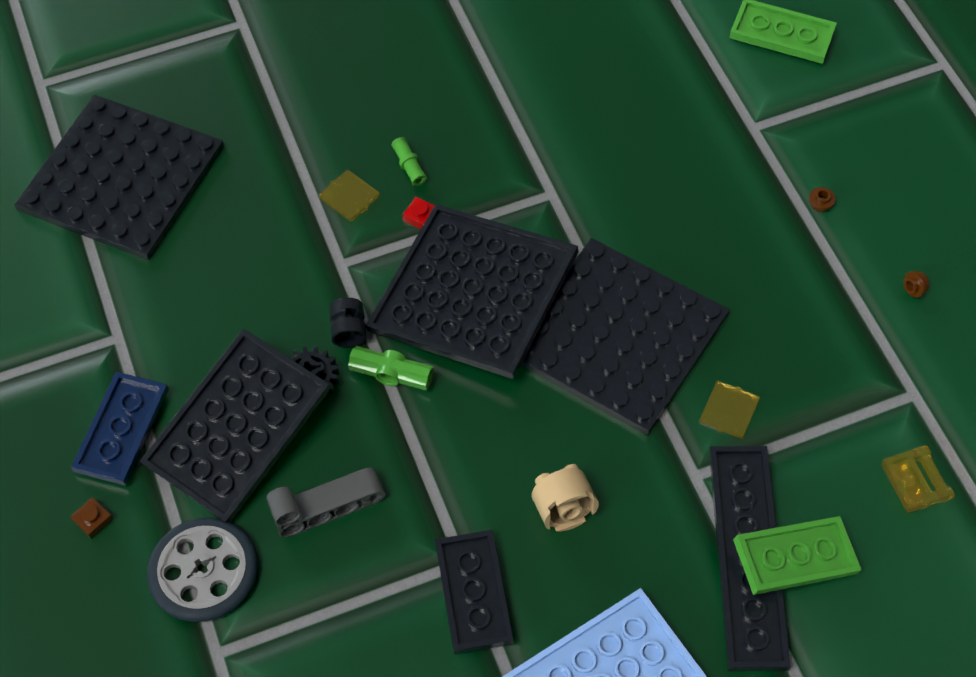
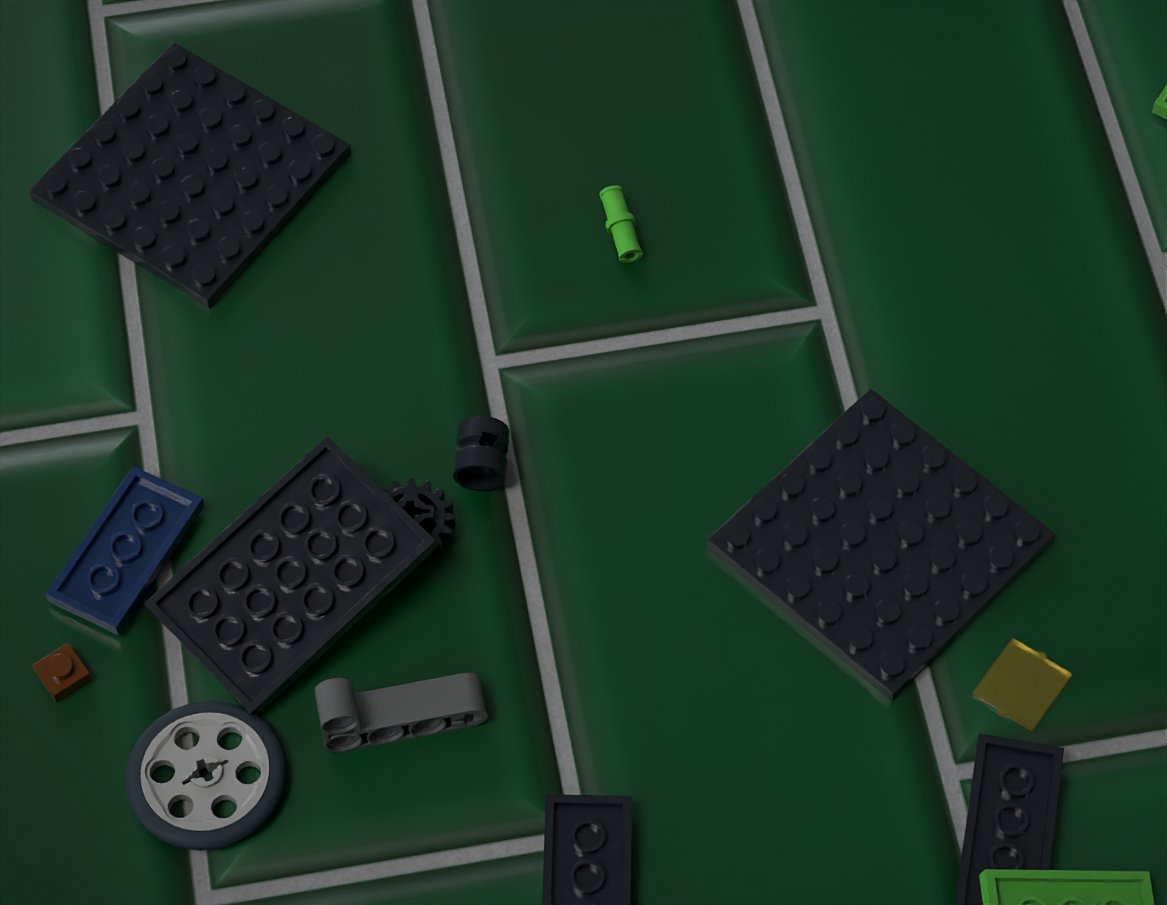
camera: 10 degrees right, 0 degrees up
(349, 195) = (521, 260): clear yellow piece -> none
(391, 368) = (532, 532): bright green piece -> none
(417, 212) = (622, 307): red plate -> none
(473, 290) = (677, 437): black plate -> none
(564, 498) = (745, 770): tan brick -> none

